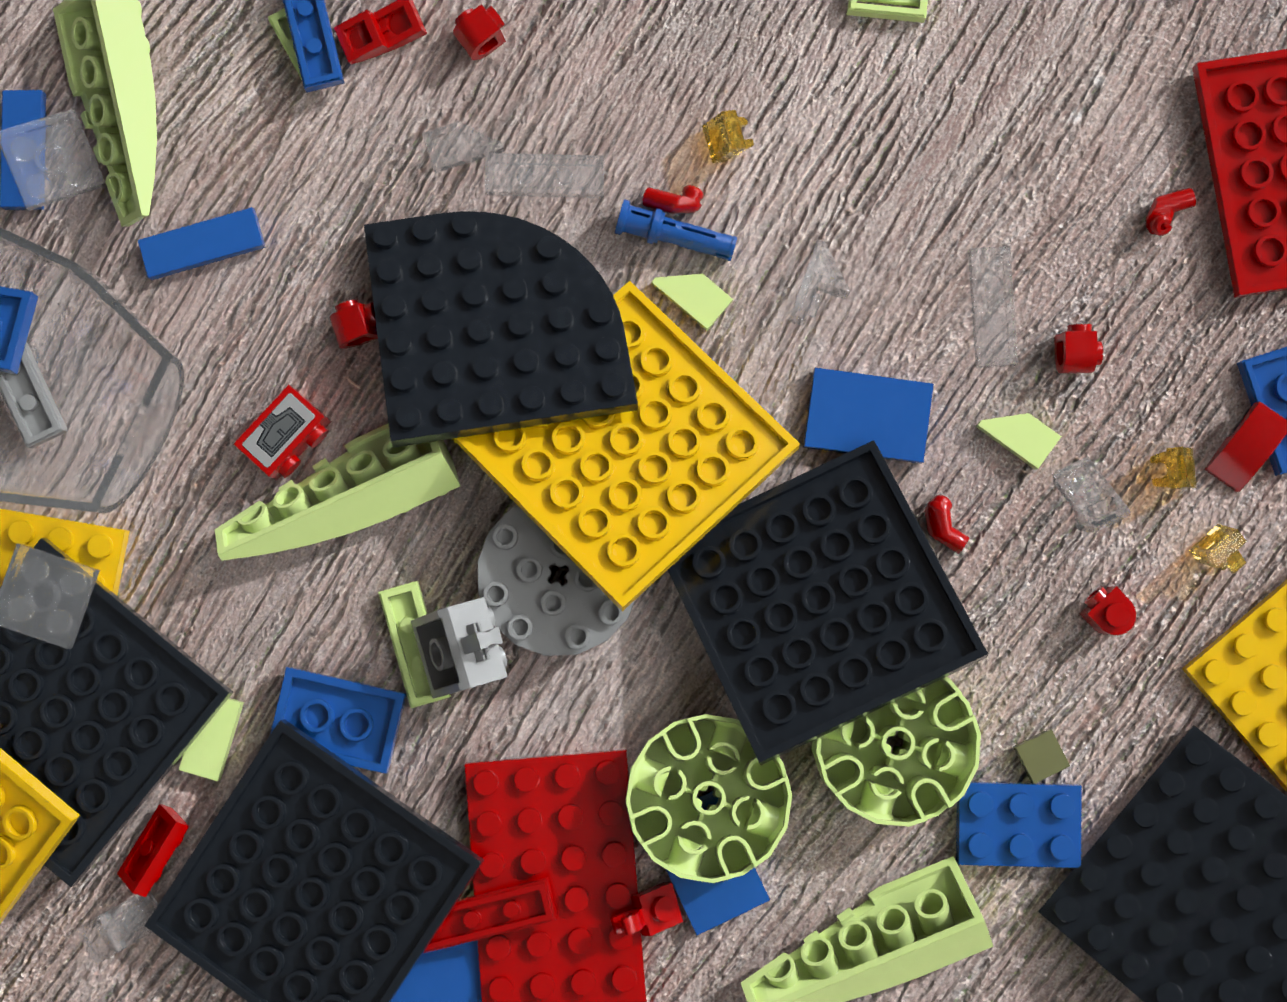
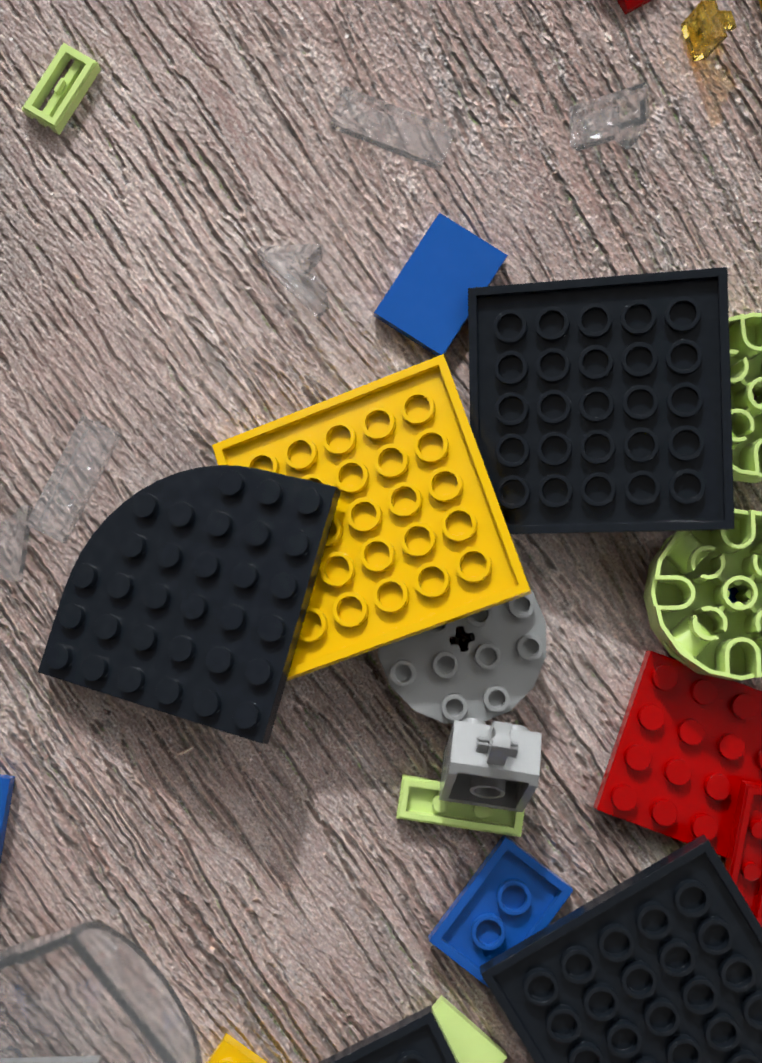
camera: 70 degrees left, 0 degrees up
(283, 433) = (202, 842): brick -> none
(342, 496) = (290, 815): yellowish green wedge -> none
(354, 324) = (128, 725): red plate -> none
(656, 227) = (173, 397): blue pin -> none
(674, 203) = (158, 371): red arm -> none
(695, 296) = (255, 392): yellowish green tile -> none
(725, 136) = (118, 293): clear yellow tile -> none
(940, 525) = (569, 267): red arm -> none
(1022, 436) = (524, 156): yellowish green tile -> none
(1077, 350) = (468, 70): red plate -> none
(1109, 611) = (719, 153): red plate -> none
(1179, 468) = (619, 31): clear yellow tile -> none

